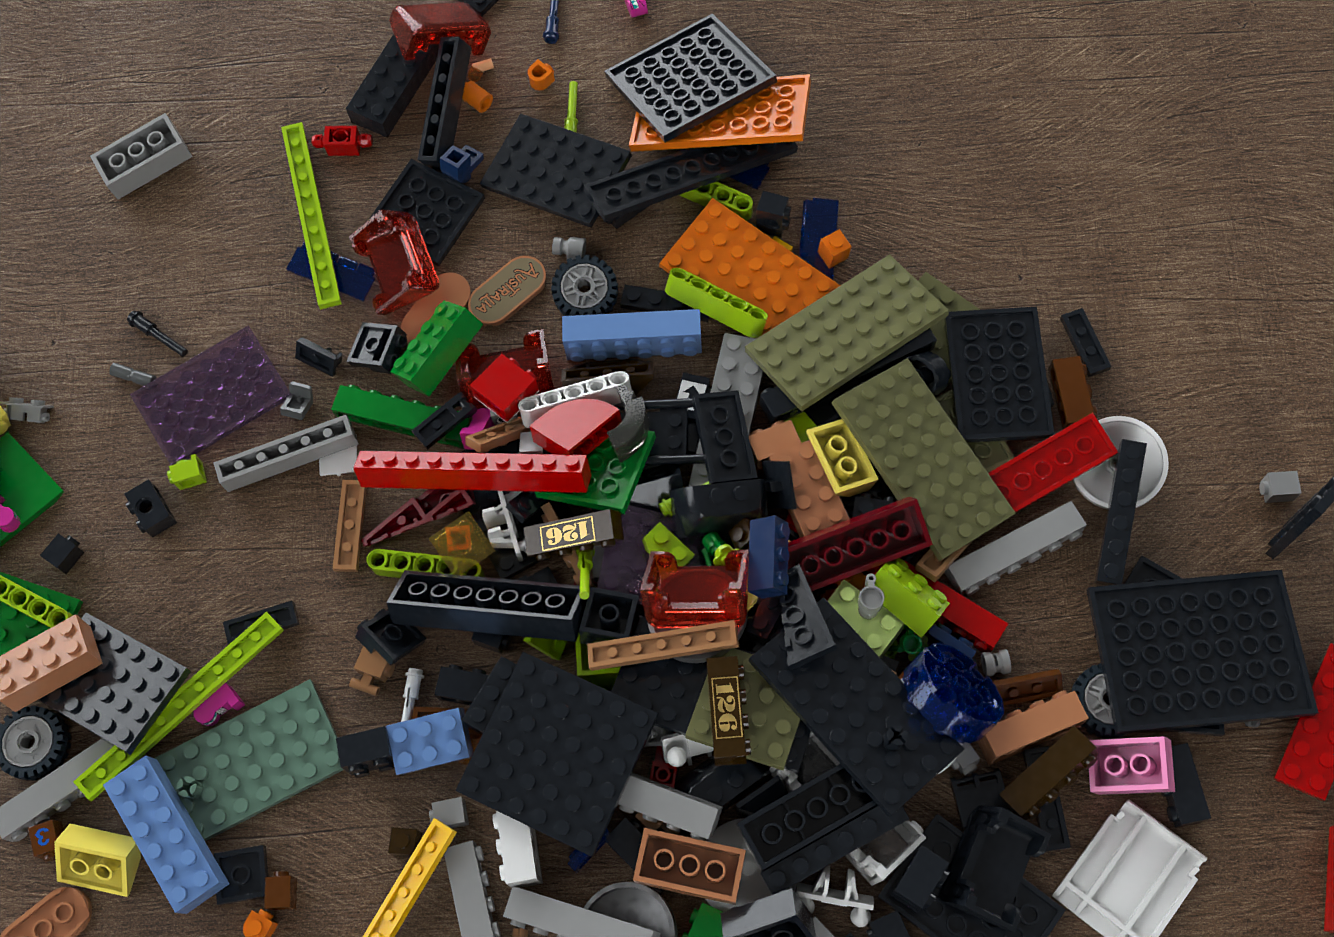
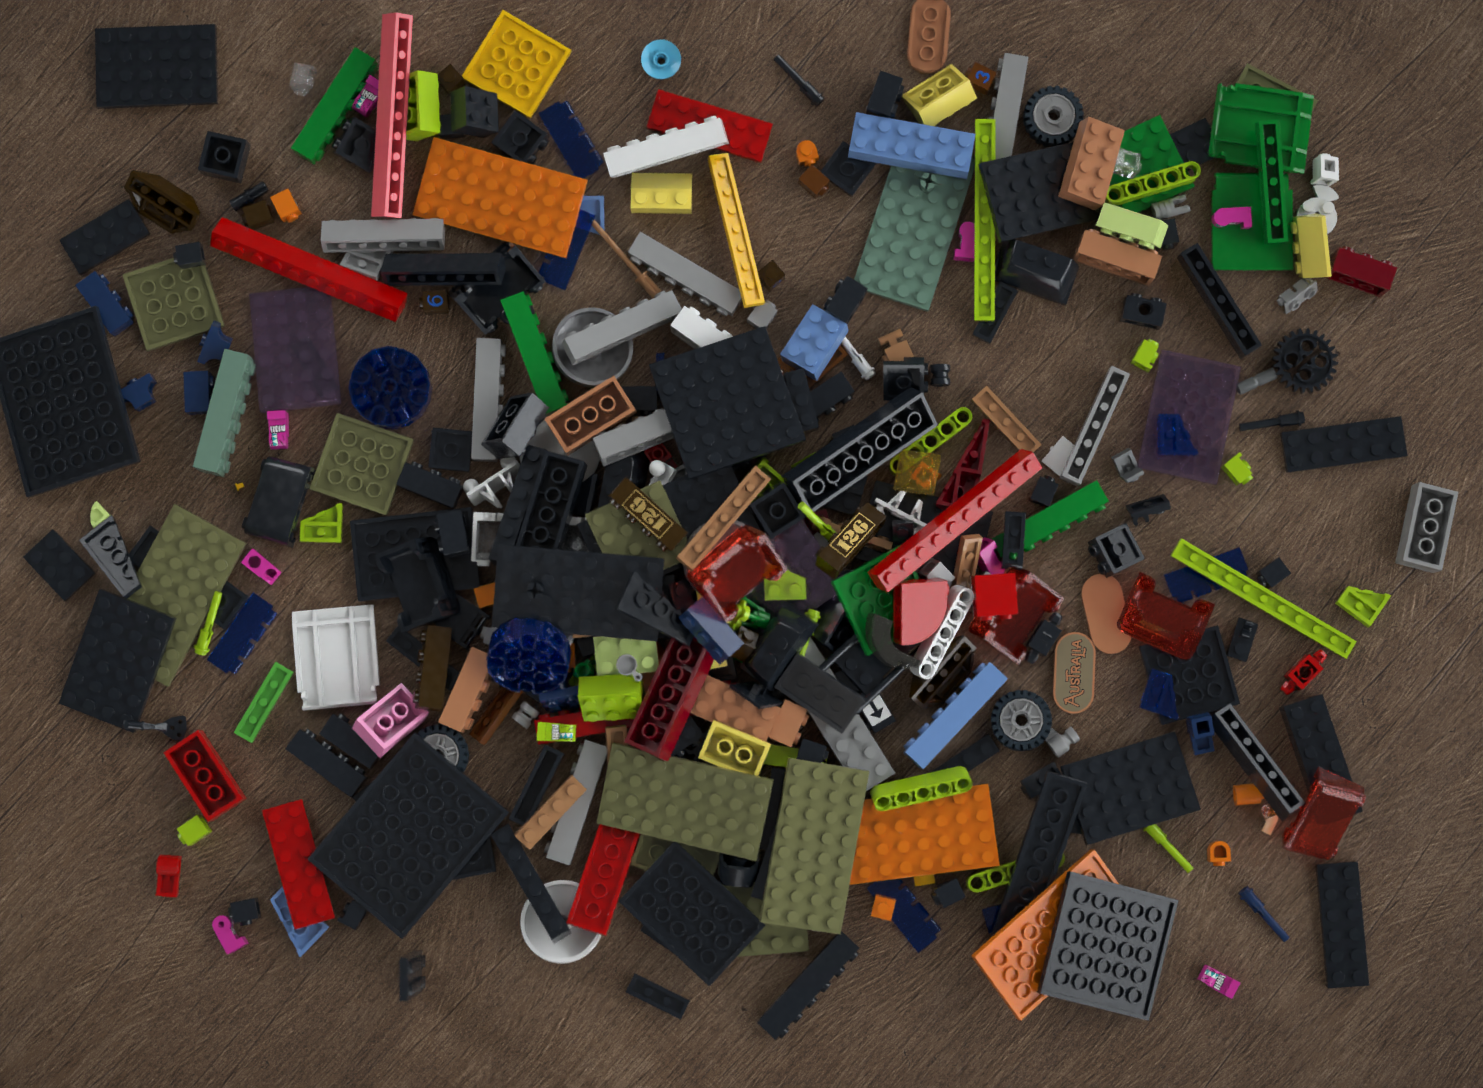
camera: 125 degrees right, 15 degrees up
(19, 632) = (1127, 164): none -> clear brick
(37, 572) = (1166, 208): none -> light grey hinge
(75, 576) = (1131, 226): none -> yellowish green brick
(84, 337) = (1293, 347): none -> black gear
(85, 459) = (1219, 301): none -> black brick
(117, 568) = (1117, 257): none -> nougat brick
(128, 271) = (1343, 444): none -> black plate
(137, 905) = (885, 94): none -> black brick
(190, 623) = (1036, 271): none -> black windscreen
(221, 322) = (1237, 470): none -> lime brick
(237, 387) = (1173, 437): none -> clear blue wing
(247, 149) = (1362, 604): none -> lime wing
(283, 226) = (1272, 573): none -> black brick
(358, 203) = (1242, 639): none -> black plate
(359, 613) = (940, 375): none -> black wheel
(381, 440) = (1043, 491): none -> black brick
(436, 347) = (1071, 583): green brick -> none
(461, 212) = (1159, 695): none -> clear blue wing
(502, 334) = (1043, 637): none -> black piece
(616, 234) = (1032, 784): none -> black plate
(934, 798) = (485, 595): none -> orange brick
(953, 246) = (808, 985): none -> black brick
(984, 616) = (556, 732): none -> lime leg
(1041, 591) = (537, 785): none -> black brick
(1050, 554) = (550, 812): none -> medium nougat plate
(1071, 389) = (633, 948): reddish brown brick -> none
(1223, 788) = (326, 762): none -> black brick
(1240, 900) = (263, 702): none -> bright green plate
(1280, 486) = (448, 1003): light grey brick -> none
(1312, 632) = (353, 915): none -> black brick

